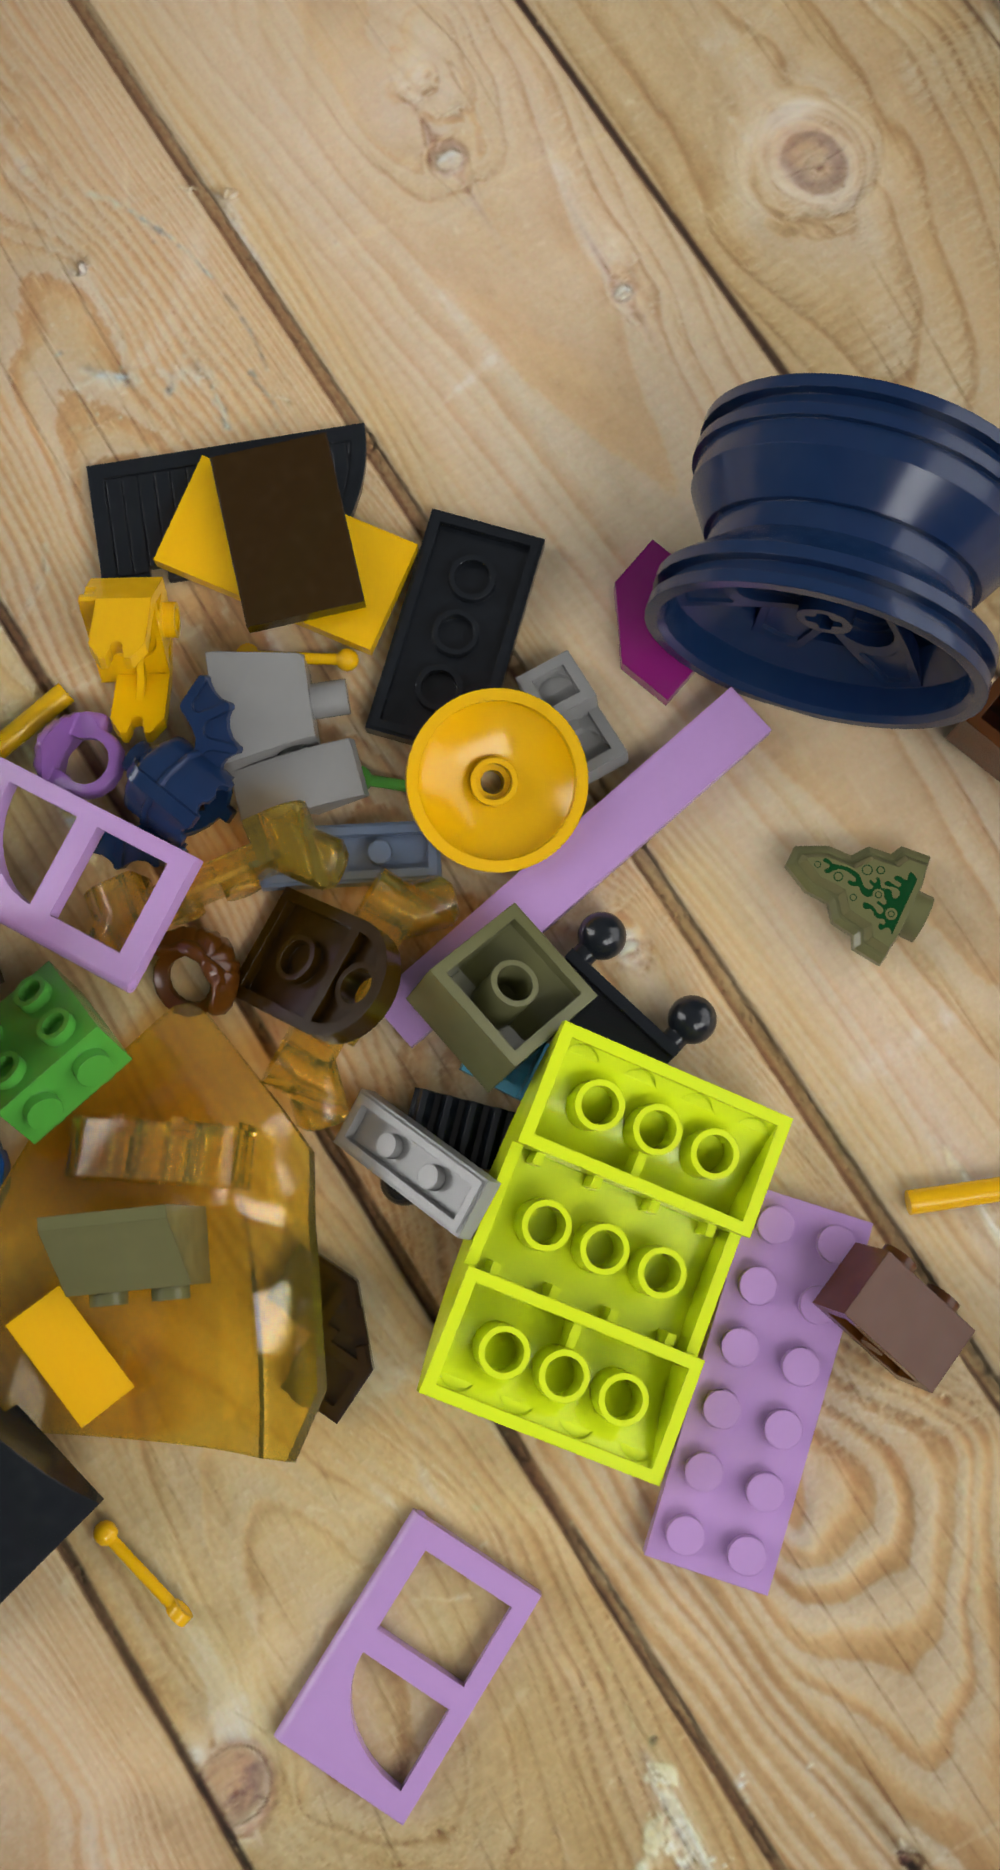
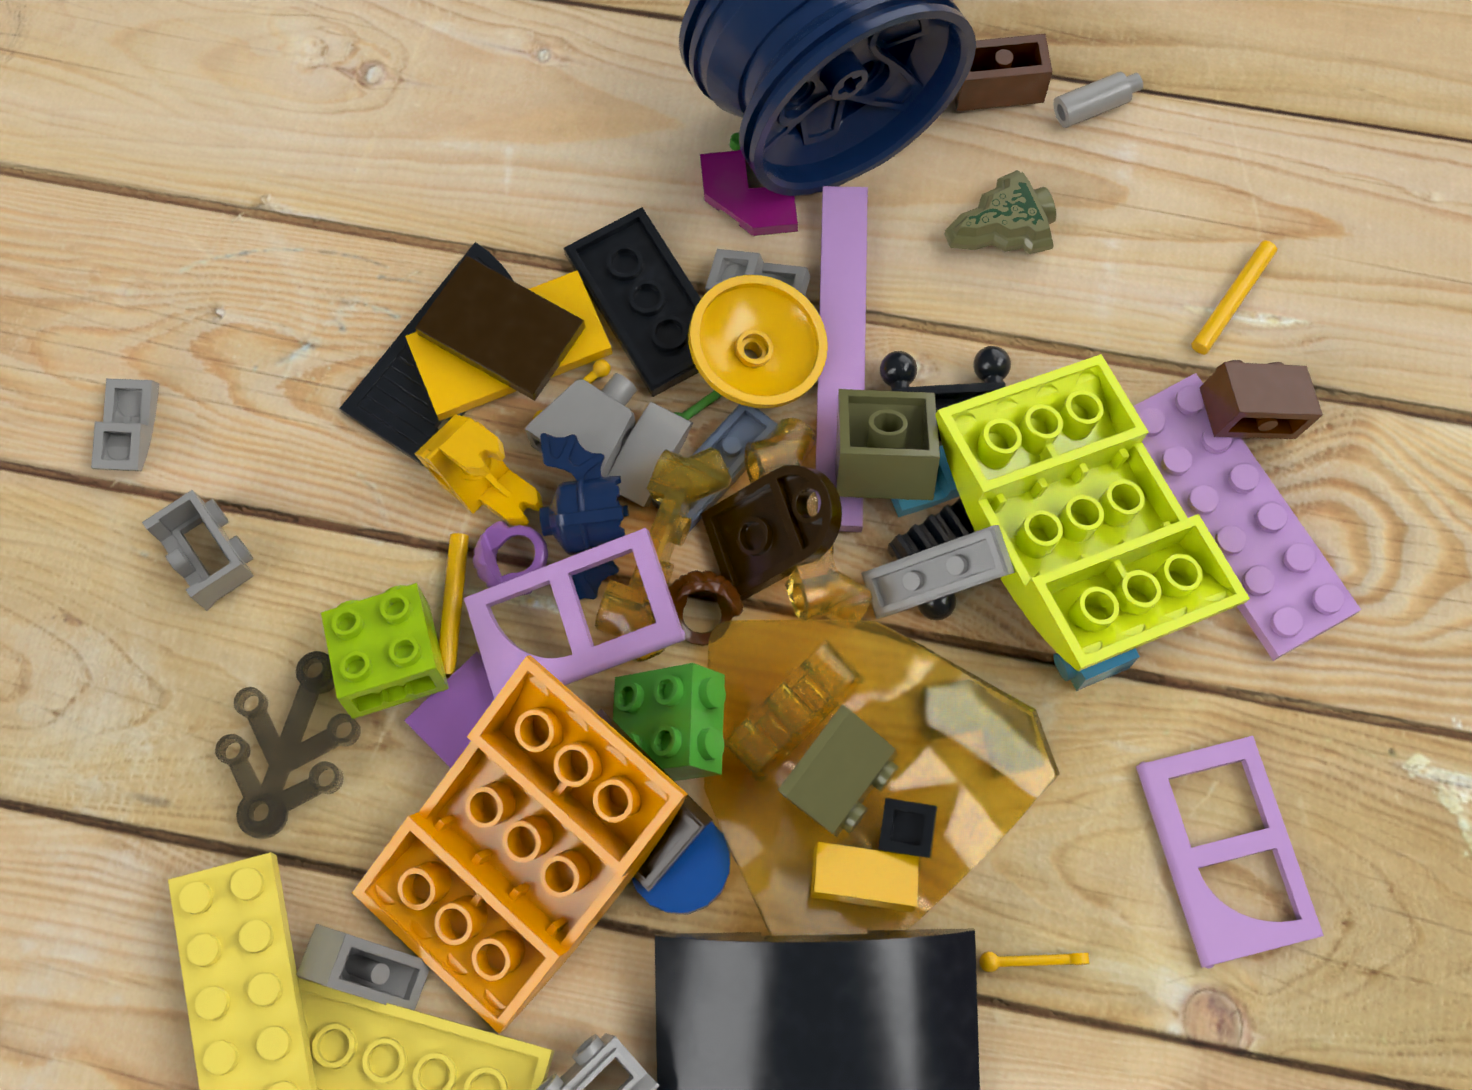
camera: 45 degrees left, 10 degrees down
(150, 1354) = (908, 828): none -> black plate

